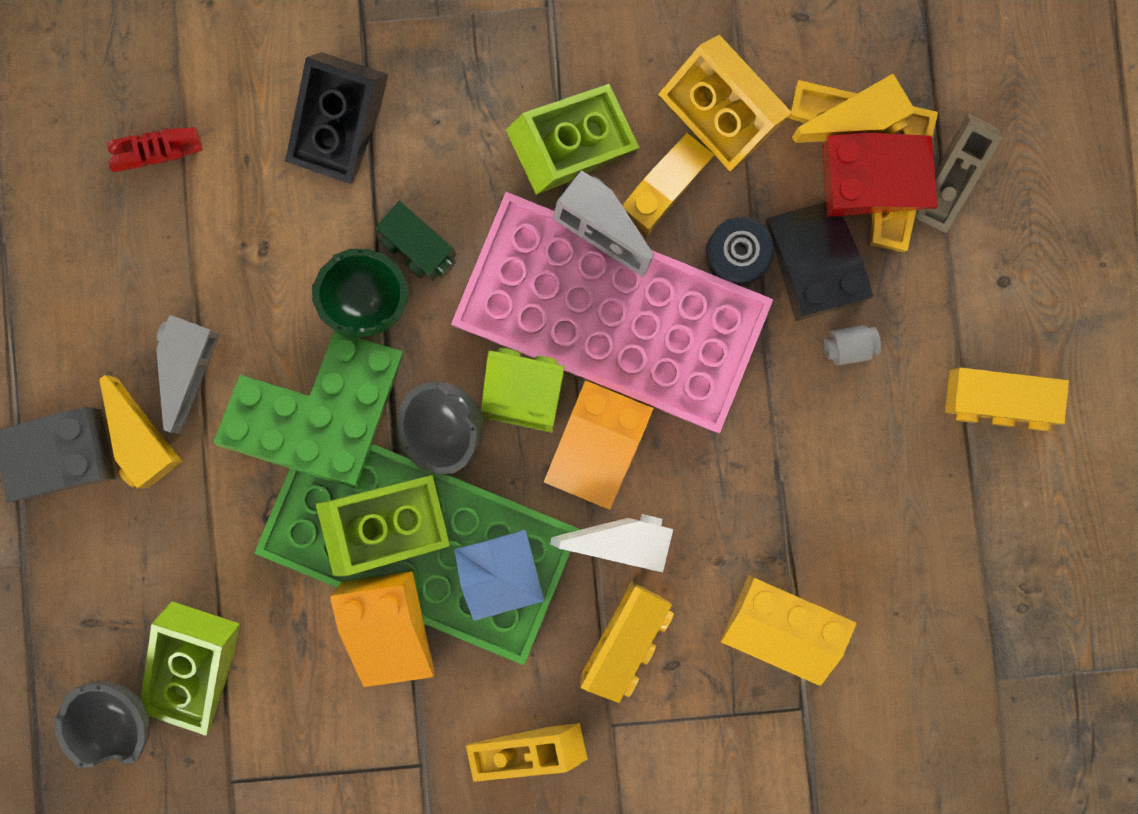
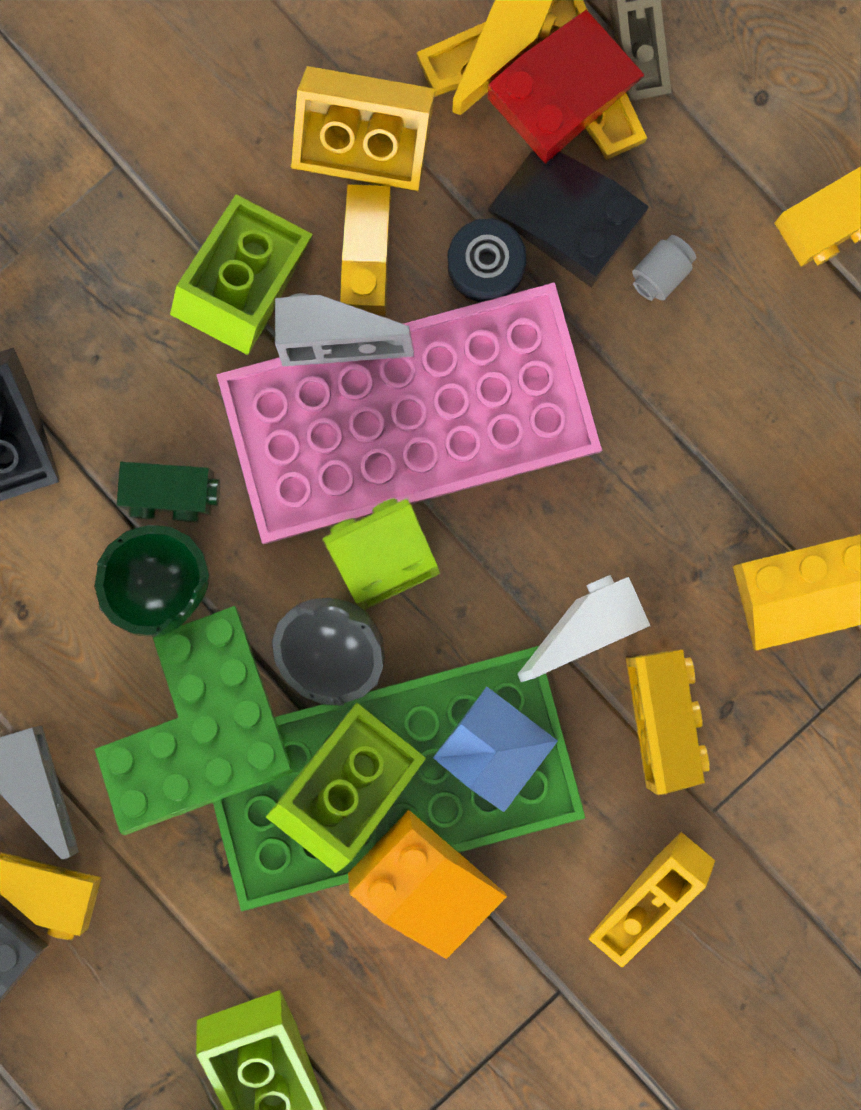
camera: 35 degrees left, 0 degrees up
(598, 445) = (494, 551): light orange slope -> none

